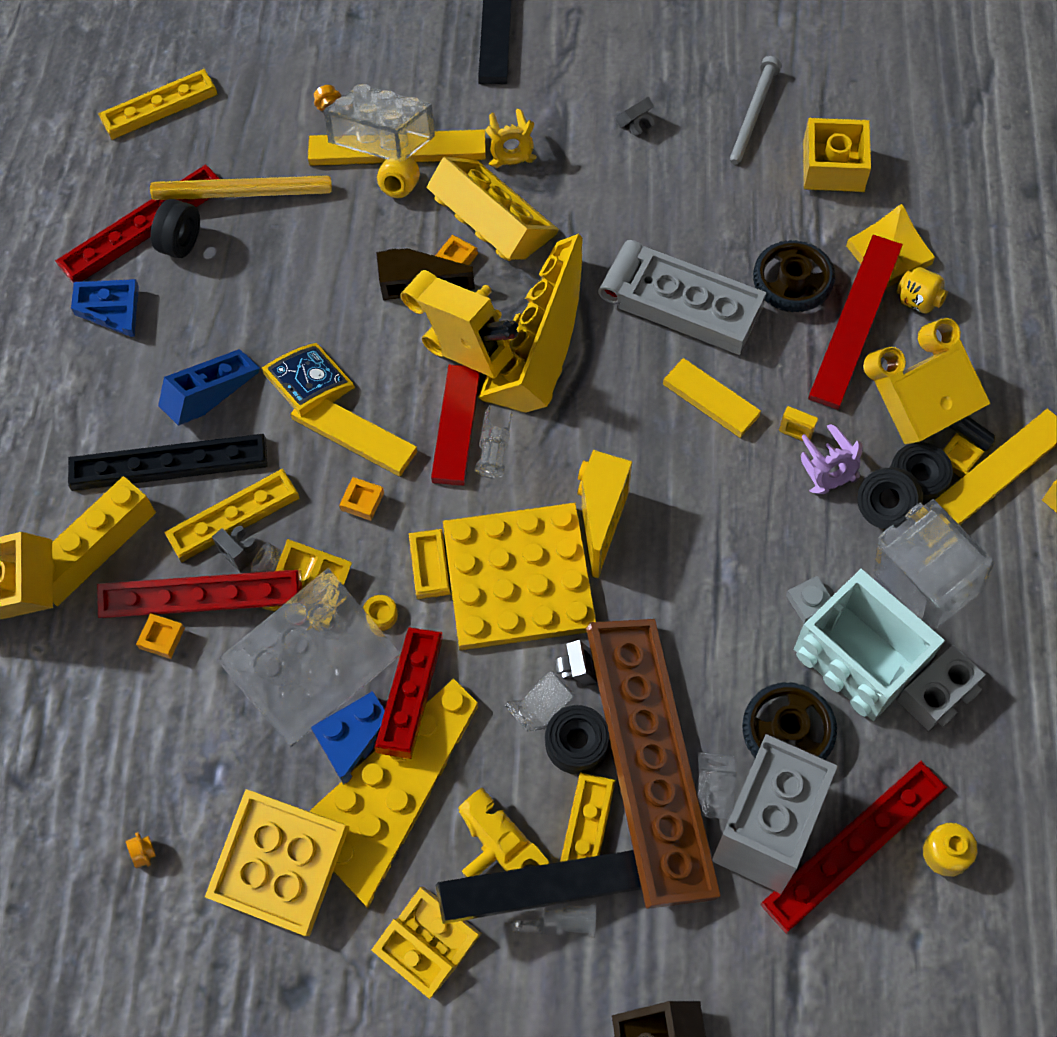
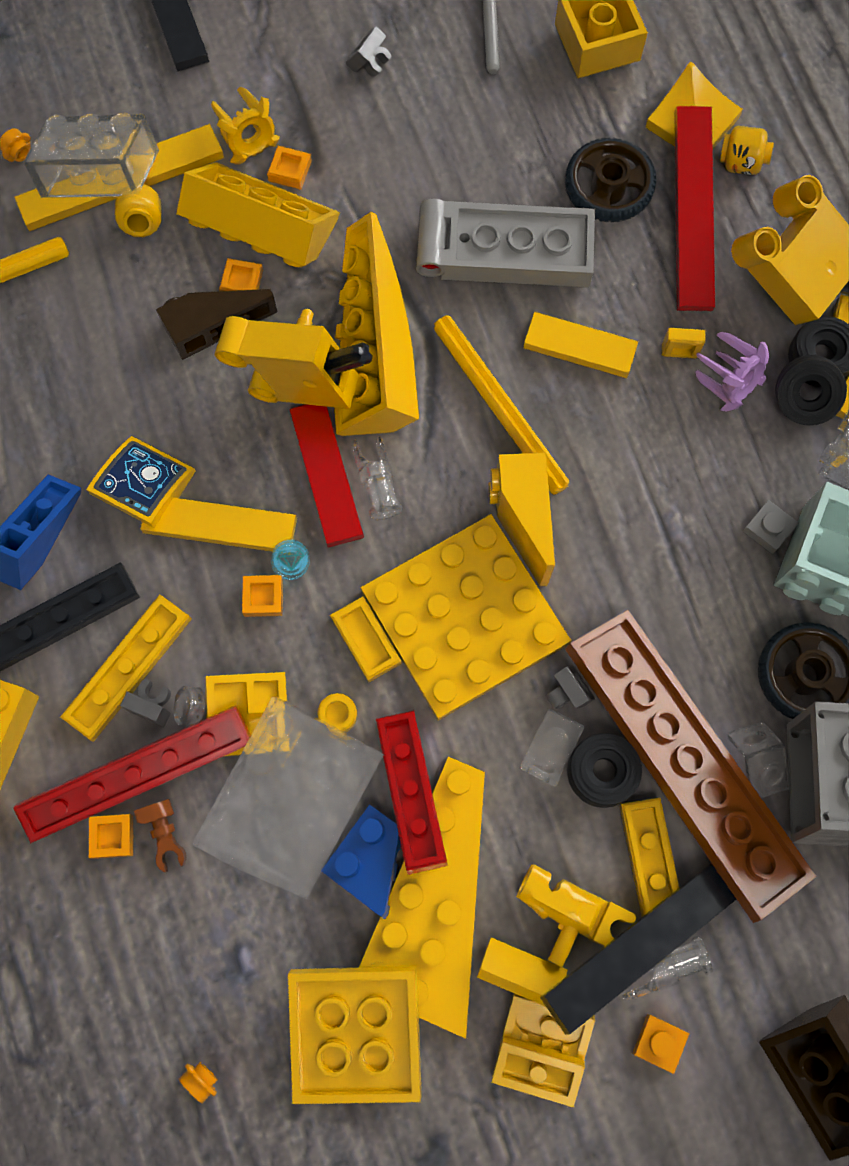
camera: 25 degrees left, 10 degrees up
(202, 633) = (162, 831): none -> dark orange piece
(396, 478) = (290, 559): none -> clear light blue tile
(427, 864) = (519, 971): none -> yellow tile
(526, 980) = (660, 1043): none -> light orange plate
(534, 182) = (289, 167): none -> light orange tile
(623, 420) = (497, 399): none -> yellow axle

